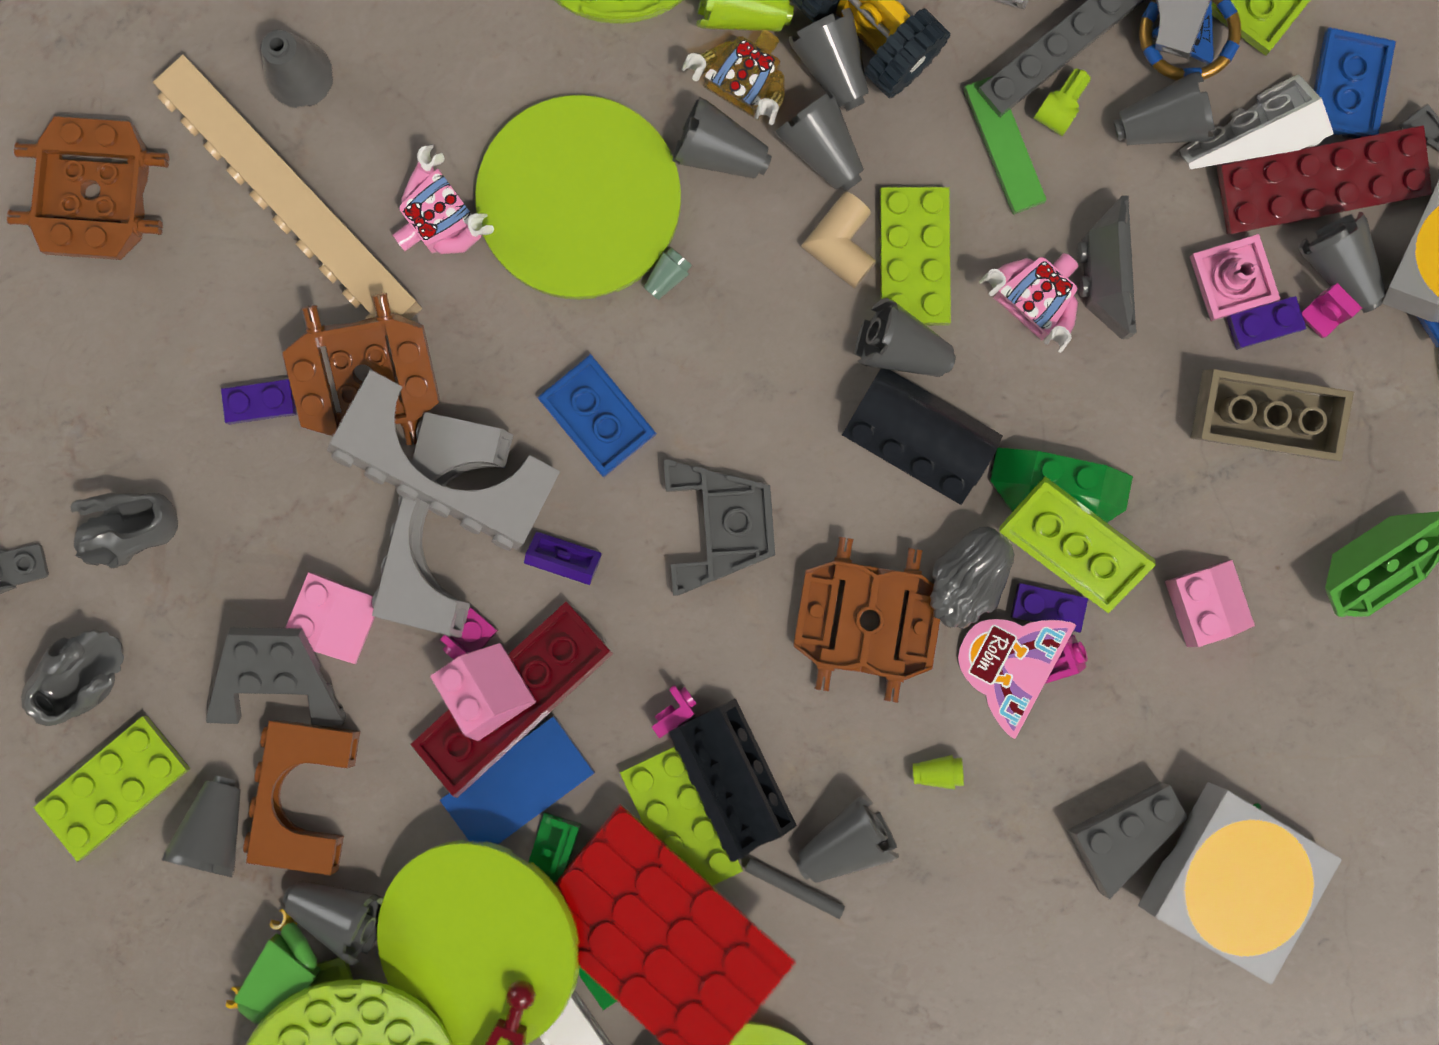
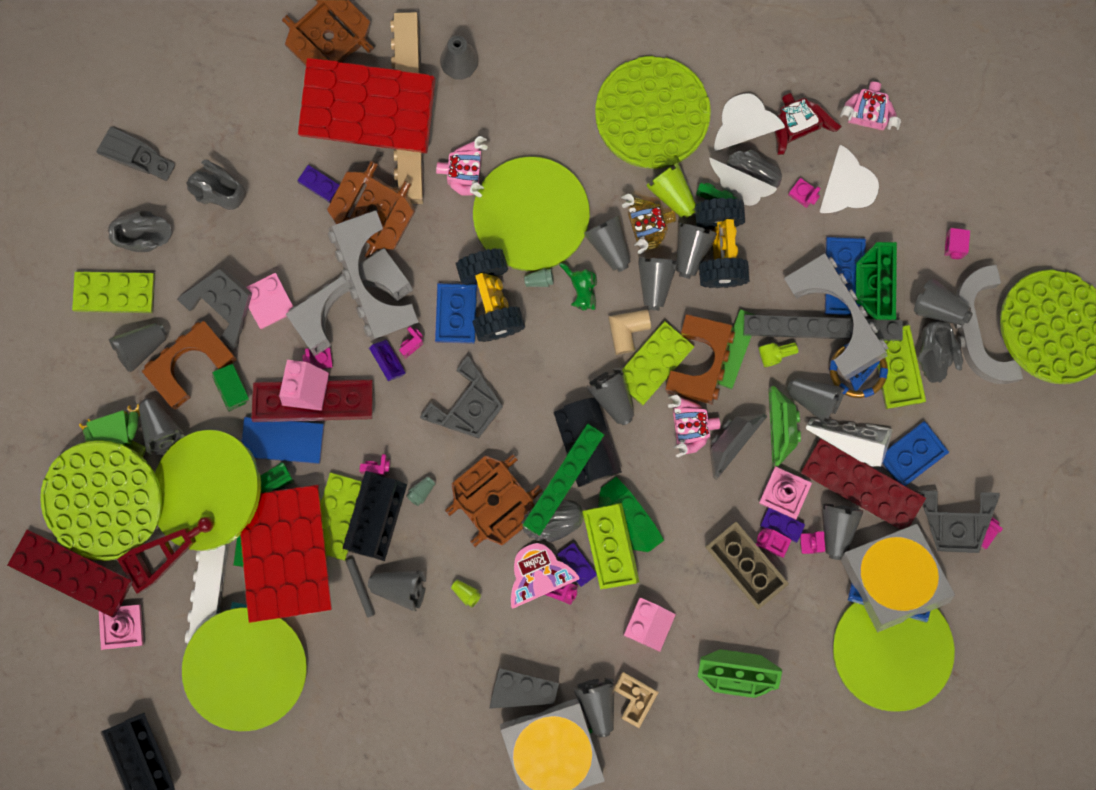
camera: 35 degrees right, 5 degrees down
(227, 238) = (366, 105): none -> red piece
(385, 777) = (230, 387): none -> green hinge
(576, 512) = (410, 346): none -> dark pink bracket
(585, 324) = (499, 319): none -> black plate
(732, 230) = (583, 283): none -> green animal
(761, 691) = (420, 491): none -> sand green cone
(944, 514) = (563, 480): none -> green plate
(972, 148) = (704, 386): none -> dark orange arch
(1156, 193) = (782, 426): none -> bright green wedge
(1238, 764) = (597, 704): none -> dark grey cone
(1275, 355) = (773, 542): none -> dark pink bracket
(1286, 708) = (640, 698): none -> tan brick

